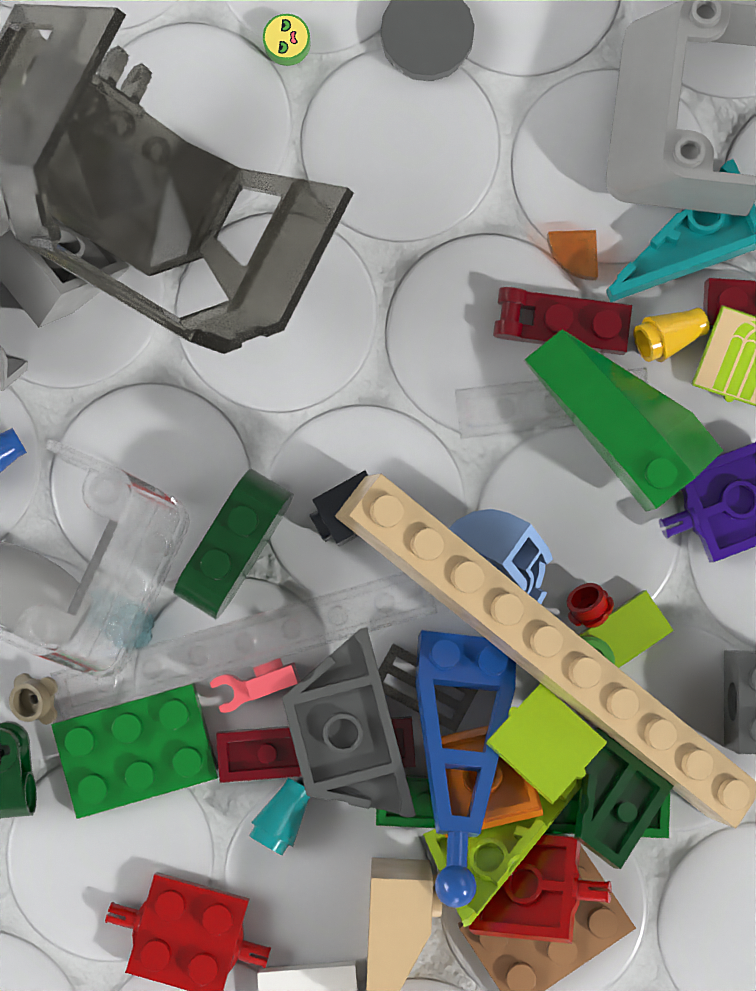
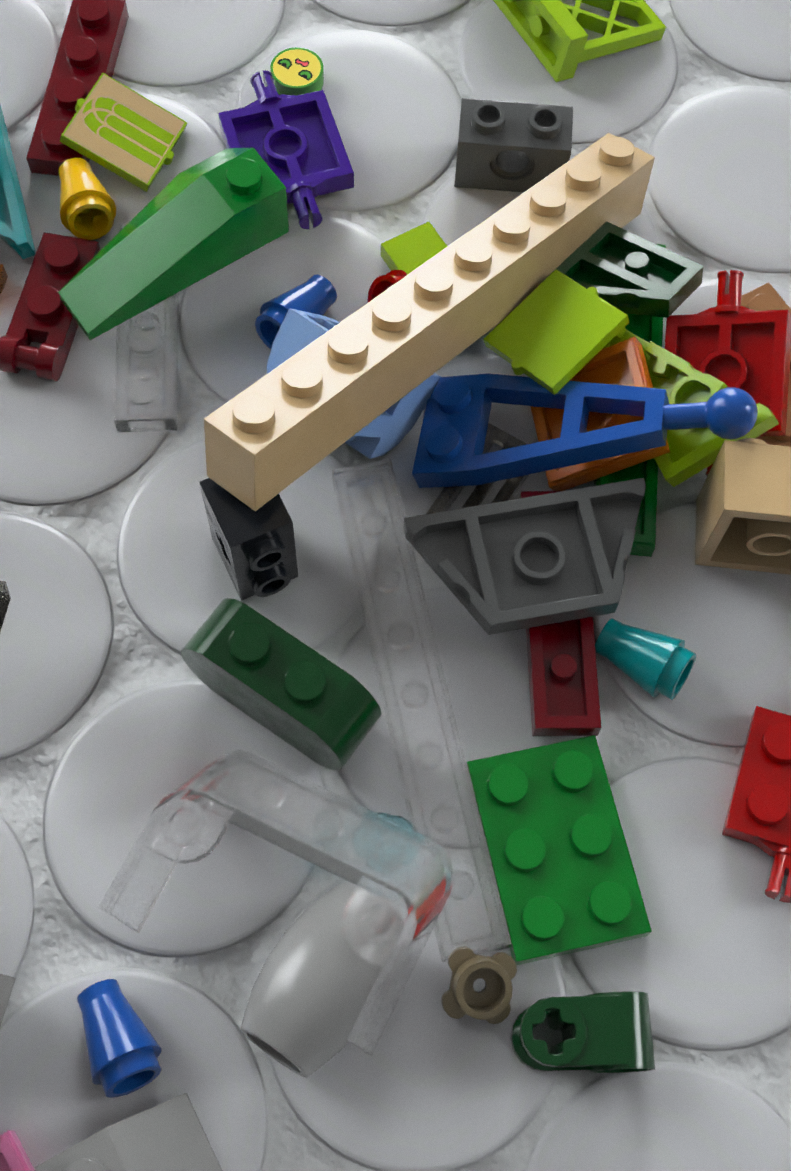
camera: 90 degrees left, 20 degrees down
(268, 679) = (467, 659): coral plate -> none
(567, 524) = (311, 296): none -> blue cone

